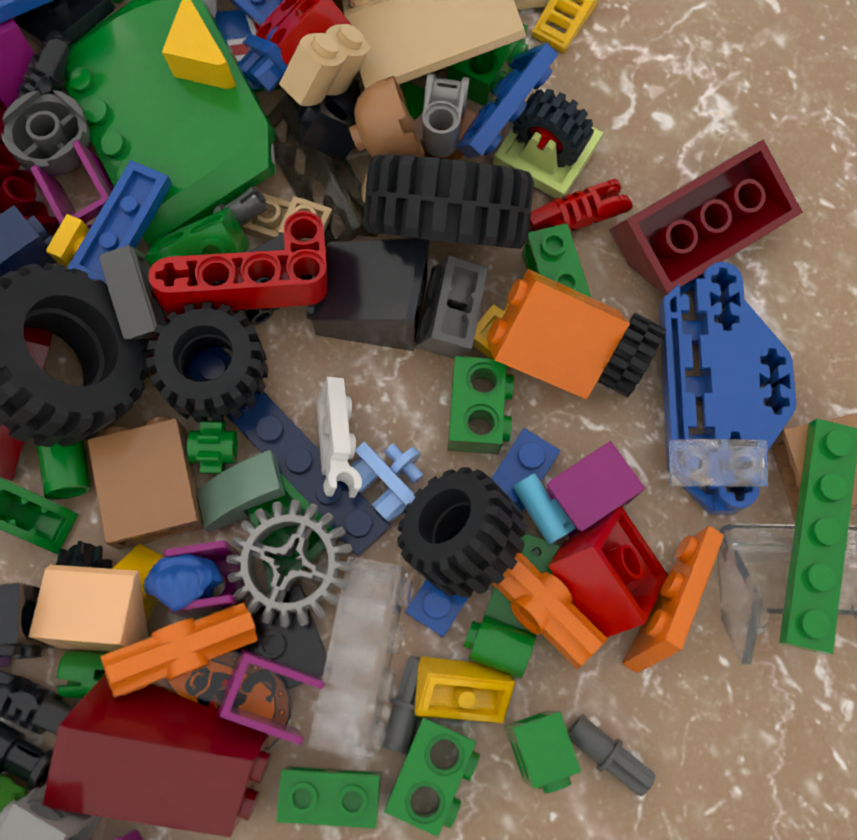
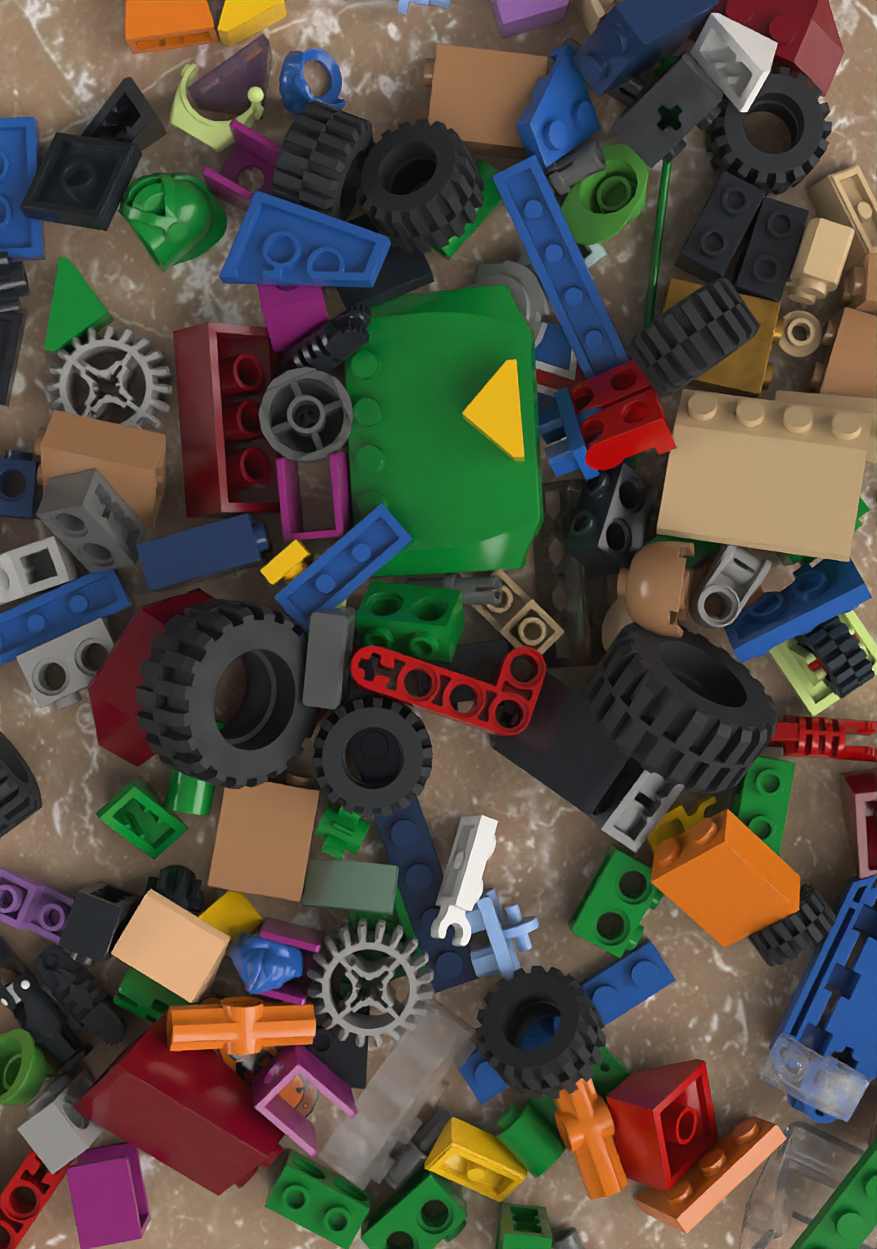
camera: 30 degrees right, 15 degrees up
(324, 64) = (625, 499): tan brick -> none
(544, 511) = (636, 1043): medium azure piece -> none
(595, 487) = (684, 1037): magenta piece -> none

